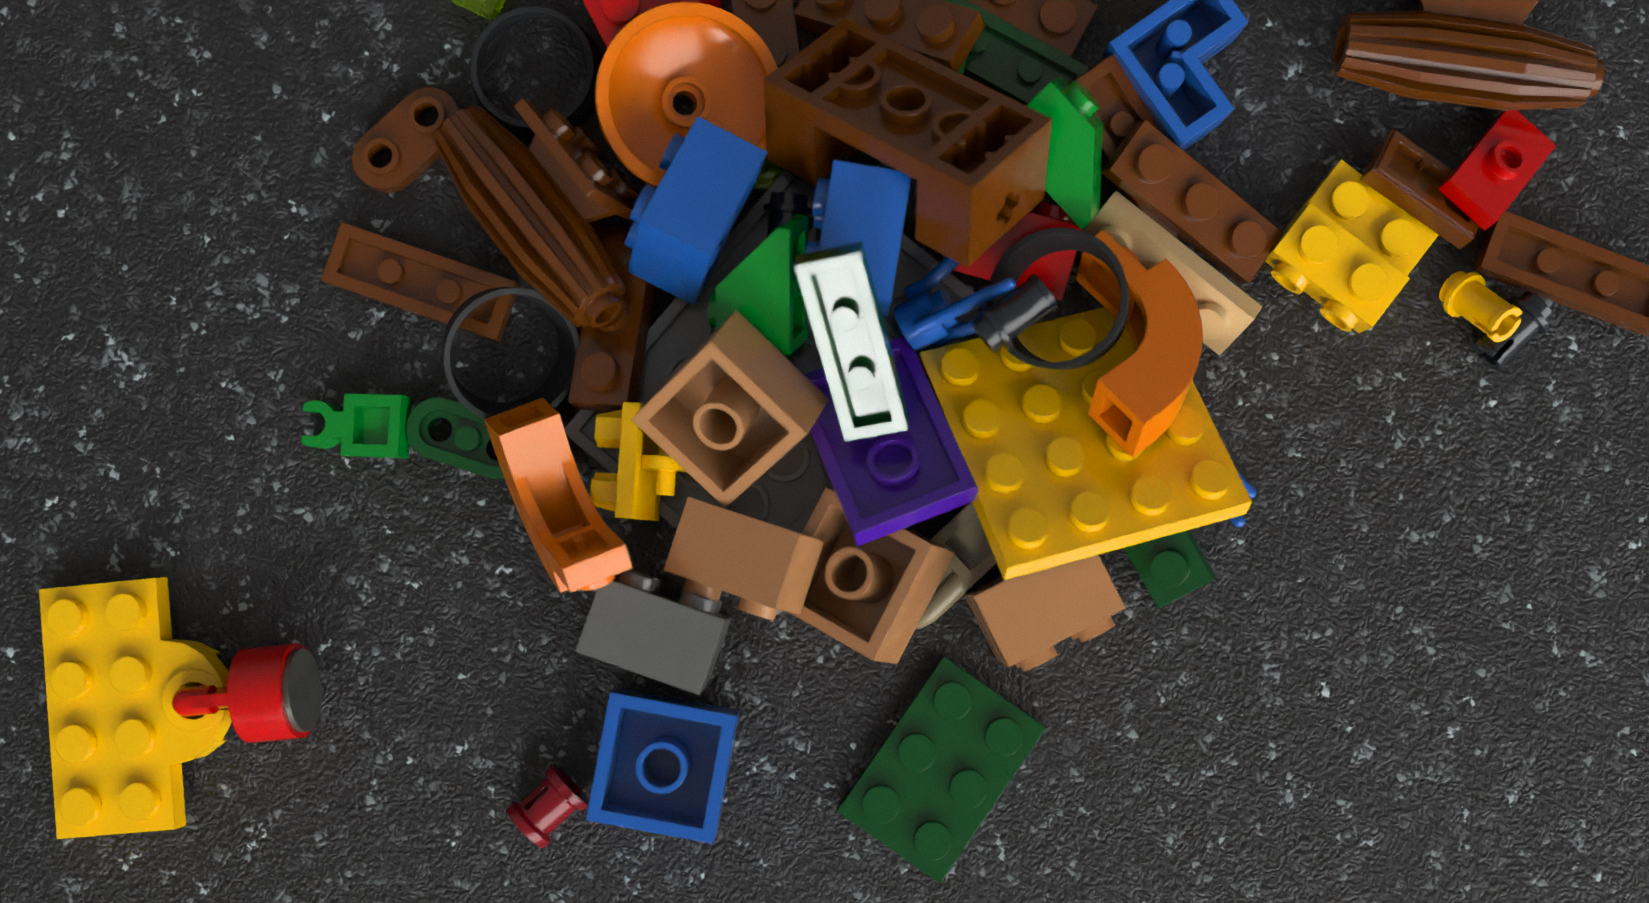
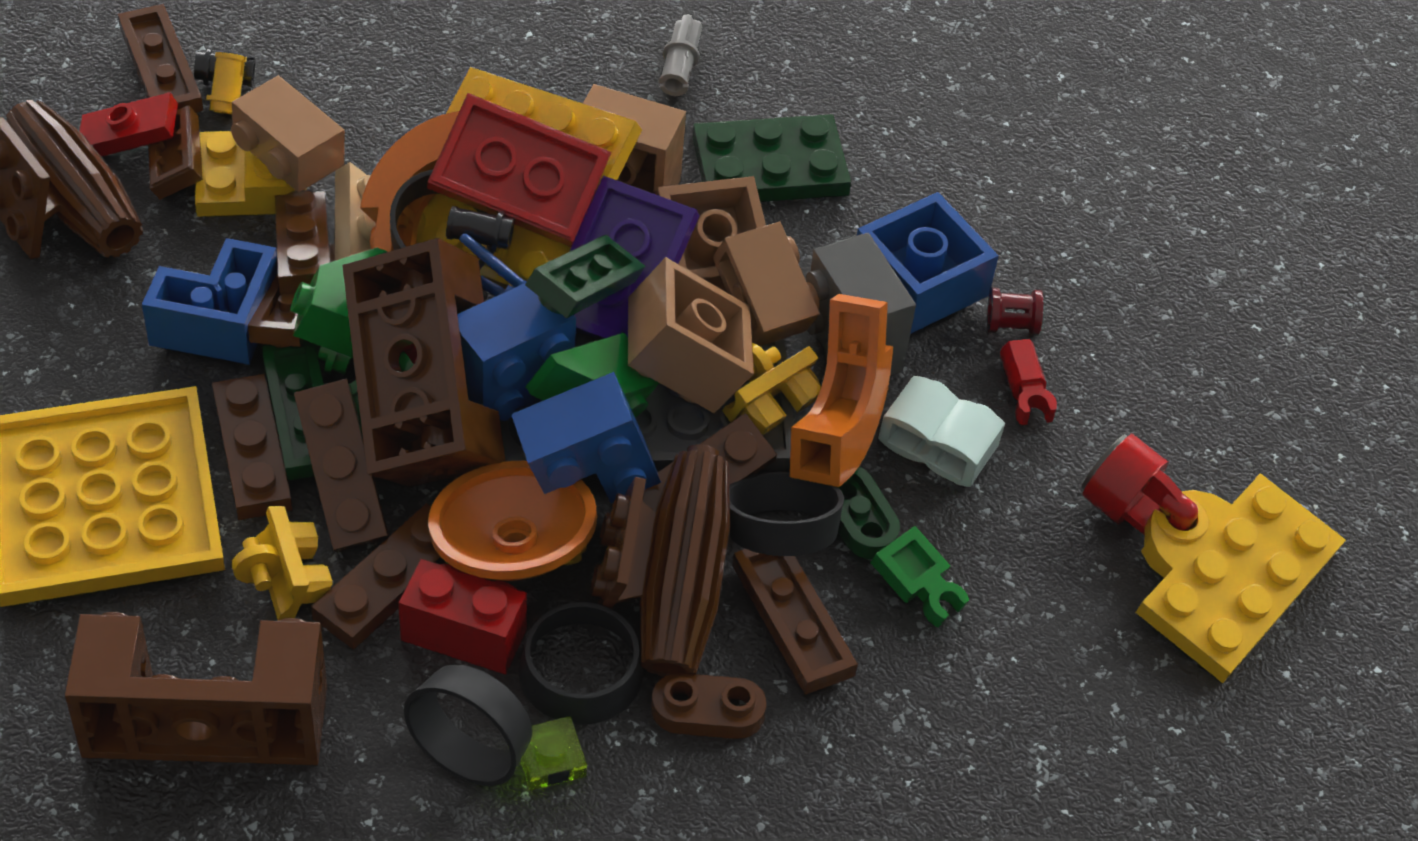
camera: 140 degrees left, 35 degrees down
(469, 737) = (1027, 380): none -> red bar
(480, 595) = (941, 430): none -> light aqua brick
(1046, 402) = (519, 168): none -> red tile
(1155, 810) = (680, 56): none -> light grey axle
(1327, 266) = (287, 133): none -> medium nougat brick

